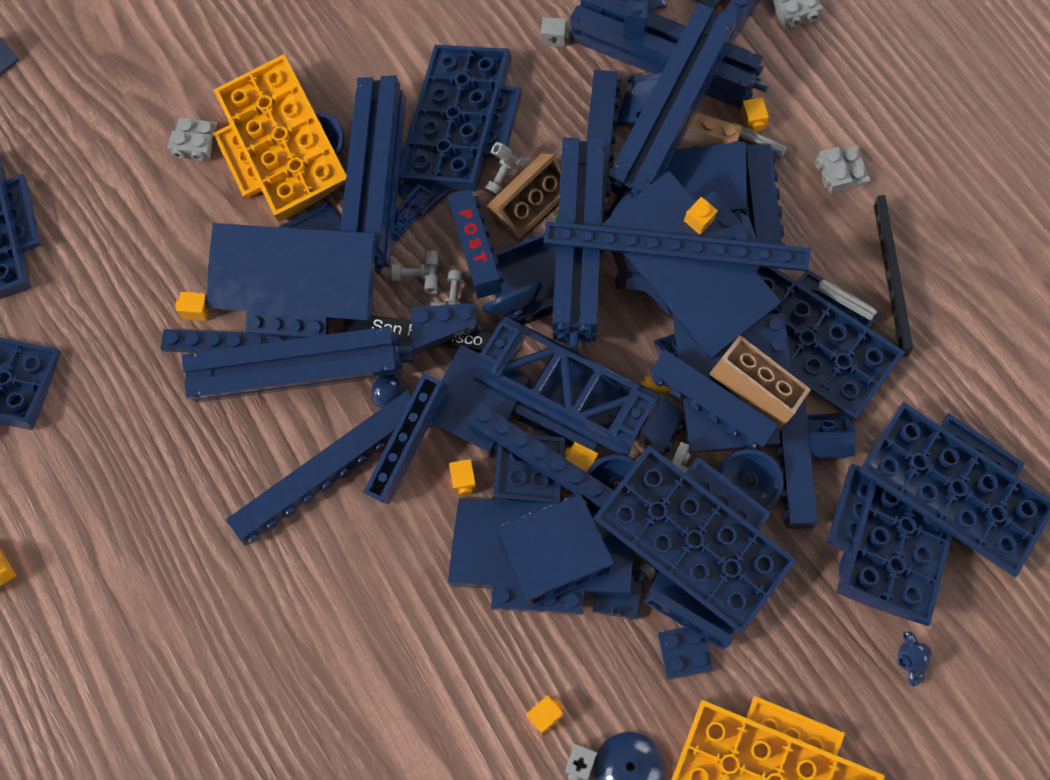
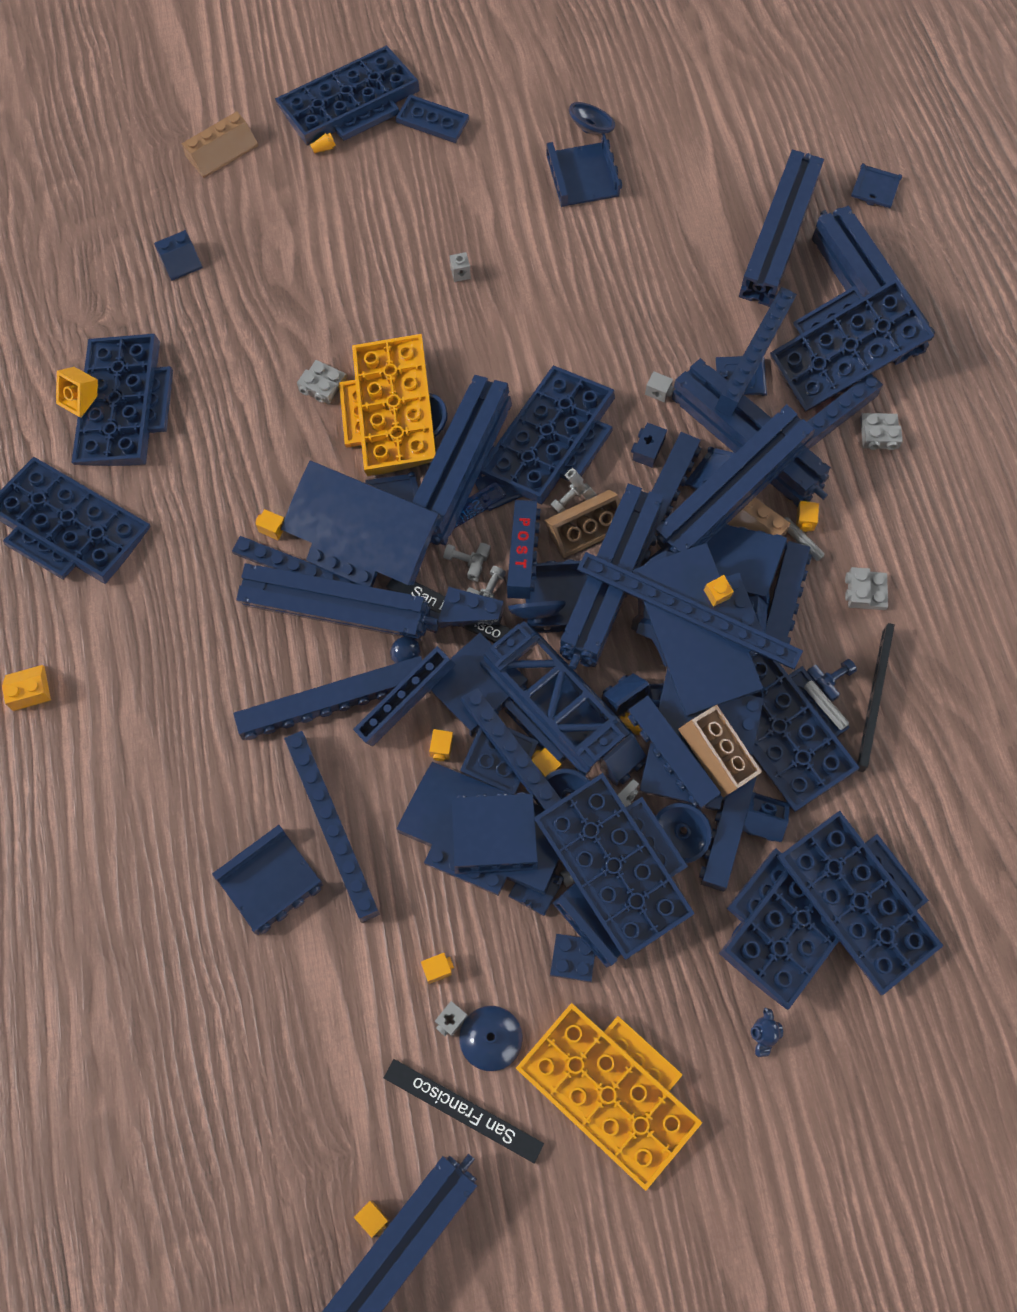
camera: 15 degrees right, 0 degrees up
(328, 686) = (268, 880): none -> dark blue panel
(377, 604) = (332, 827): none -> dark blue brick
(565, 94) = (655, 438): none -> dark blue brick
(638, 356) = (625, 694): none -> dark blue slope
(838, 274) = (827, 681): none -> dark blue bar

